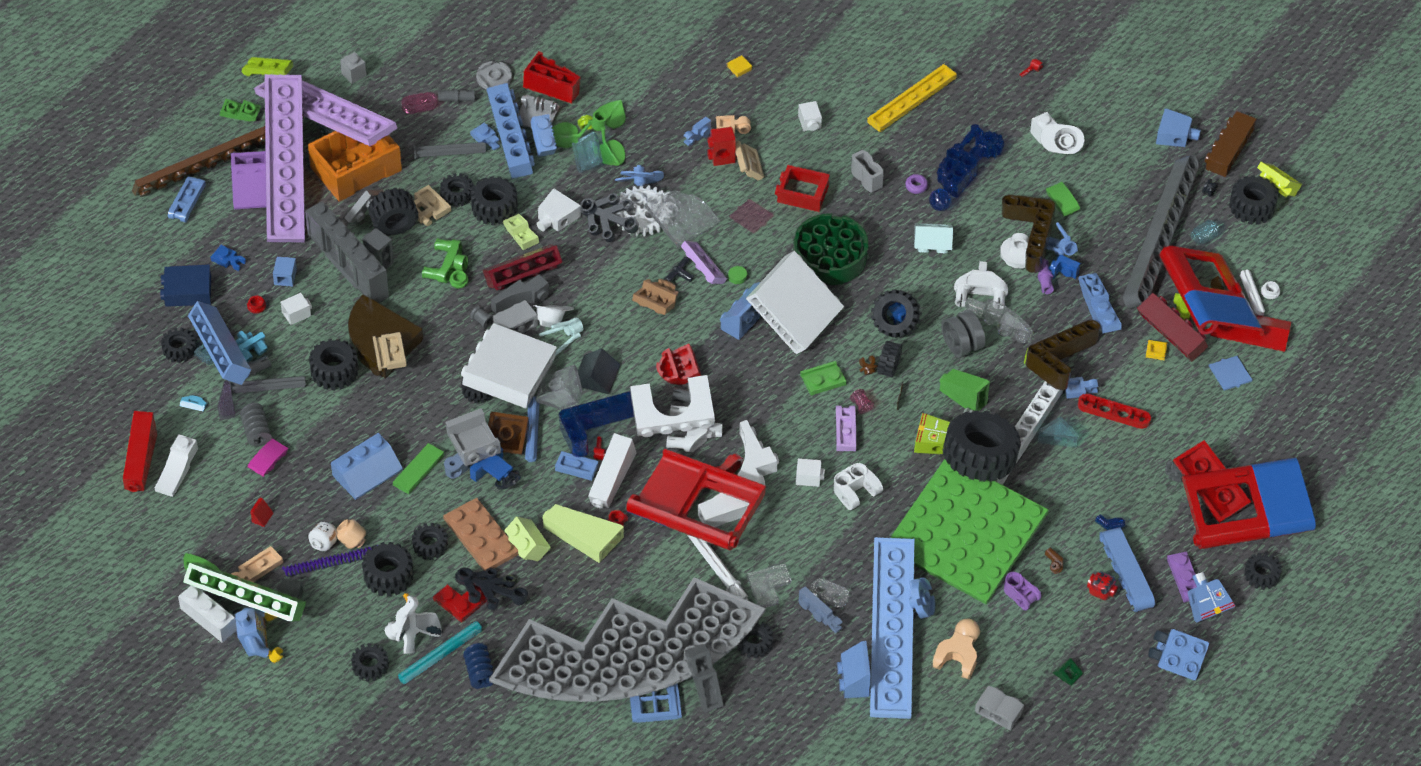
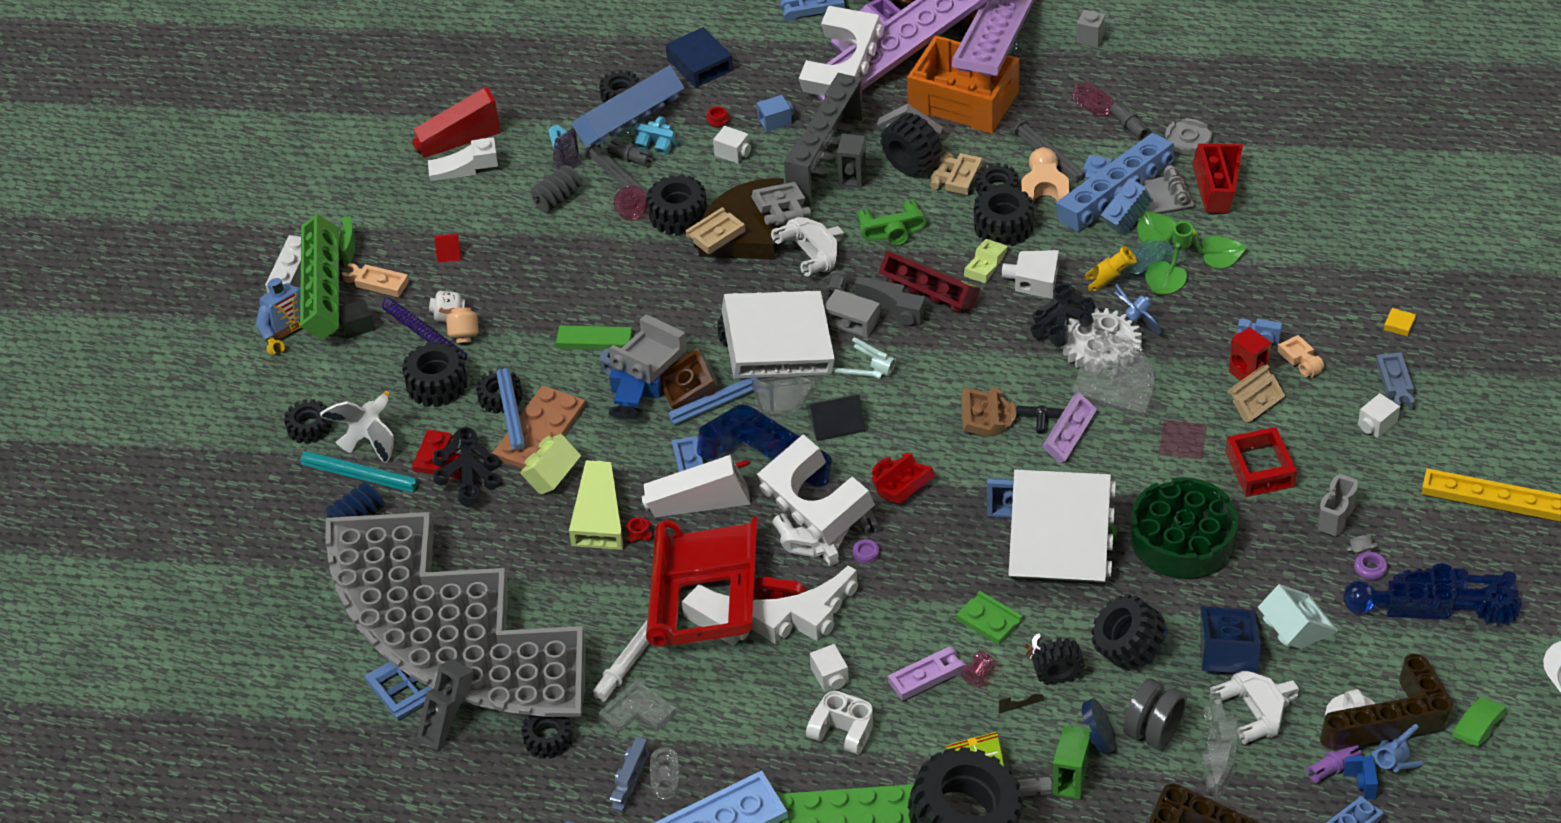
camera: 65 degrees right, 5 degrees down
(226, 256) = (762, 68): blue plate -> none
(267, 457) = (517, 217): dark pink slope -> none
(269, 179) = (848, 25): none -> white arch
(307, 389) = (630, 202): none -> clear pink plate
(366, 466) = (562, 294): medium blue slope -> none
(387, 302) = (779, 197): none -> light grey plate
(437, 307) = (814, 240): none -> white connector
(458, 279) = (875, 244): bright green plate -> none
(461, 538) = (510, 409): none -> medium blue axle
(476, 163) = (1044, 176): none -> light nougat piece
(551, 314) = (884, 336): white piece -> none
(590, 170) = (1110, 268): none -> yellow piece
(724, 412) = (866, 551): none -> medium lavender tile
(737, 275) = (1081, 464): bright green tile -> none
(785, 92) = (1395, 378): none -> sand blue plate
(900, 178) = (1361, 544): none -> light grey plate
(926, 274) = (1228, 640): none -> dark blue slope
(950, 363) = (1101, 729): none -> dark blue tile

